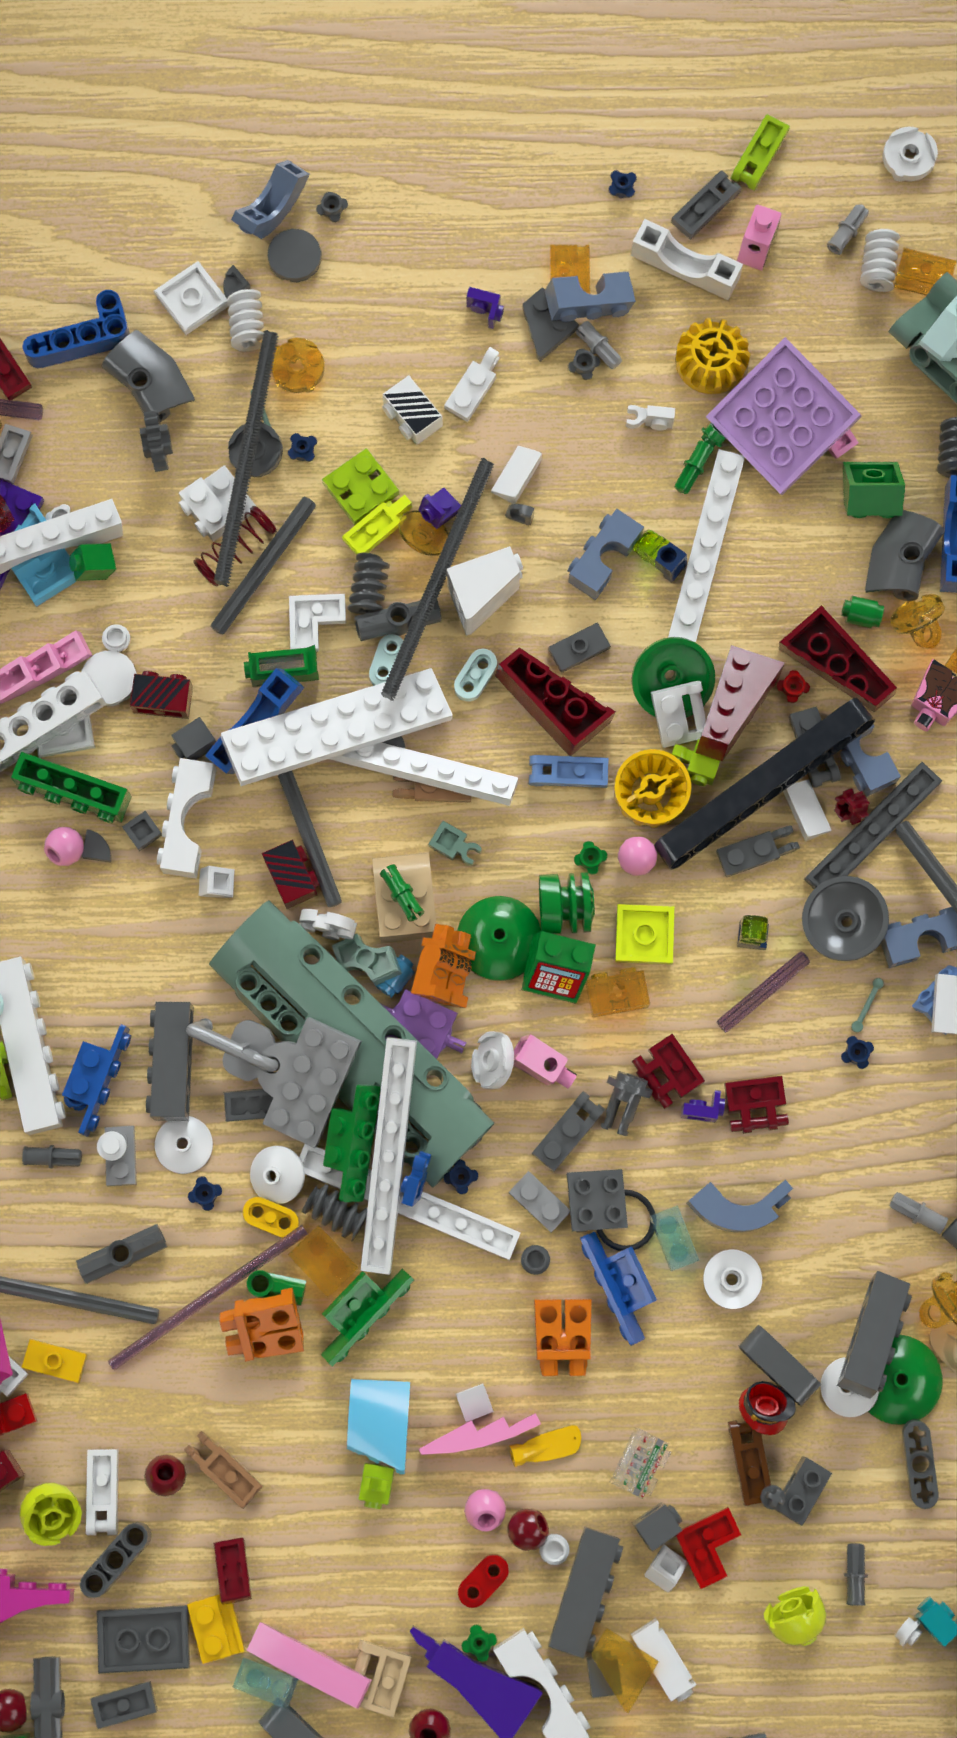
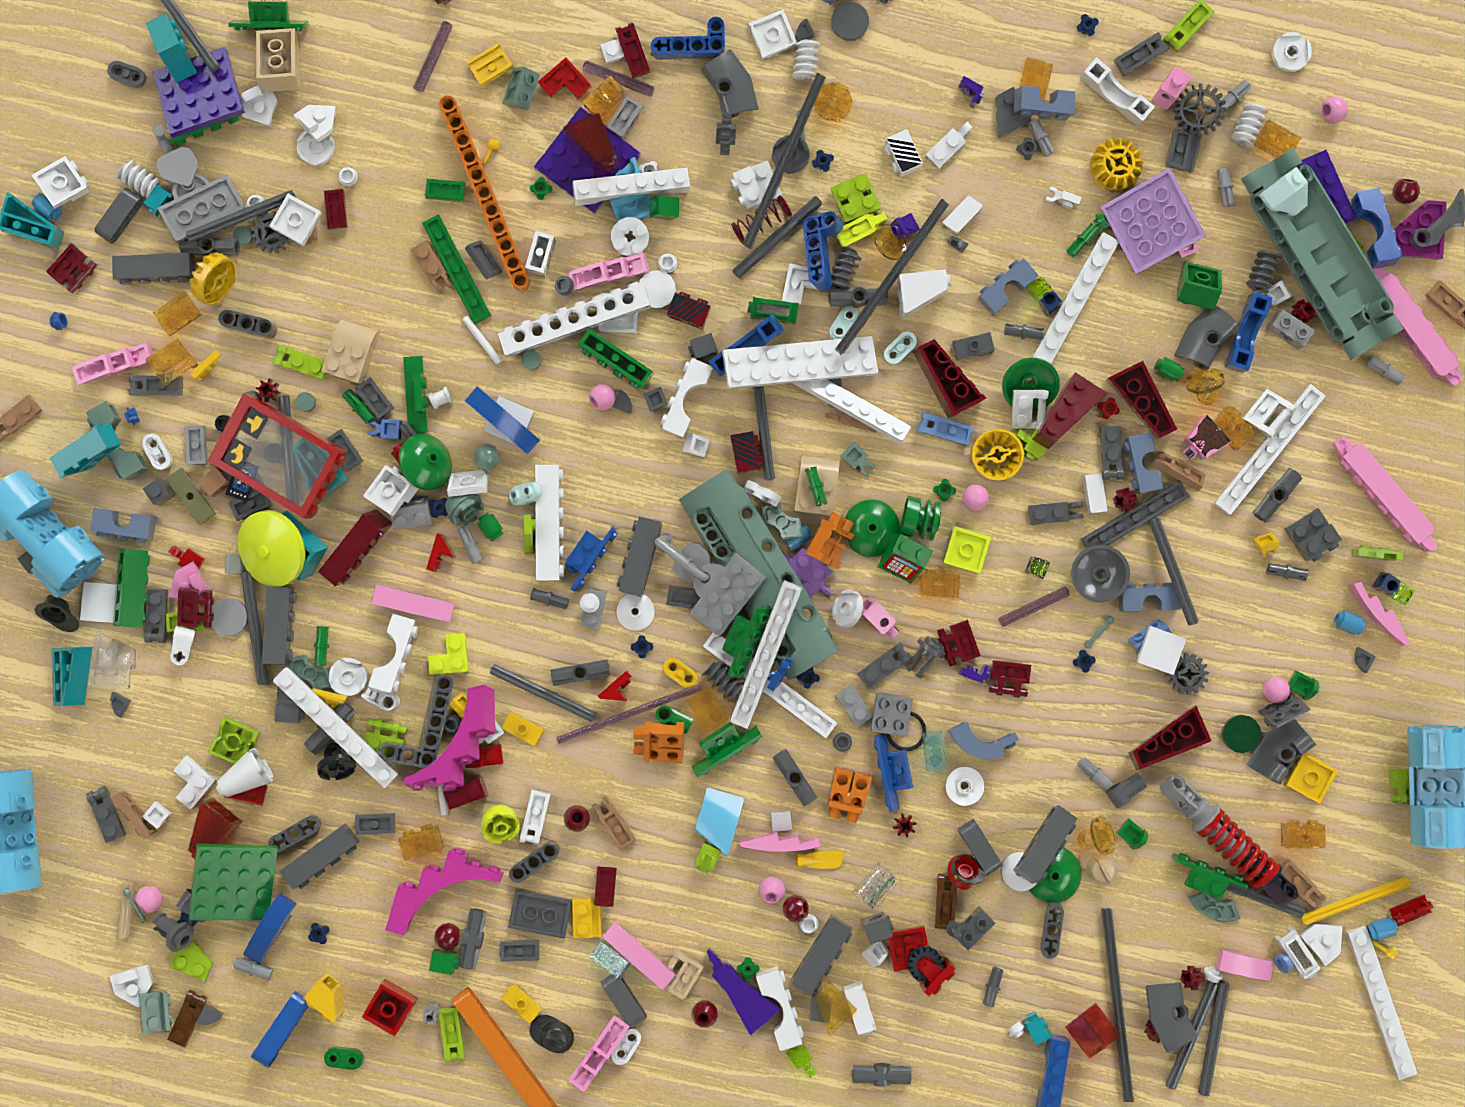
camera: 15 degrees right, 10 degrees up
(41, 601) = (623, 227): none -> white plate
(175, 1270) = (612, 691): none -> red slope
(288, 1172) = (698, 643): white dish -> none
(316, 544) = (820, 252): none -> blue beam
(463, 1315) = (801, 788): none -> dark grey piece
(483, 1581) = (759, 931): red plate -> none
(645, 610) = (1024, 331): none -> dark grey pin
(666, 1356) = (905, 830): none -> dark red gear
(749, 1568) = (927, 966): none -> plate
(764, 783) = (1072, 470): black beam -> none
(797, 1617) = (949, 1003): neon yellow cylinder -> none
(799, 315) = (1183, 150): none -> dark grey plate
(816, 253) = (1208, 109): none -> dark grey gear
(871, 350) = (1225, 187): none -> light grey axle
(917, 747) = (1179, 470): none -> medium nougat hinge

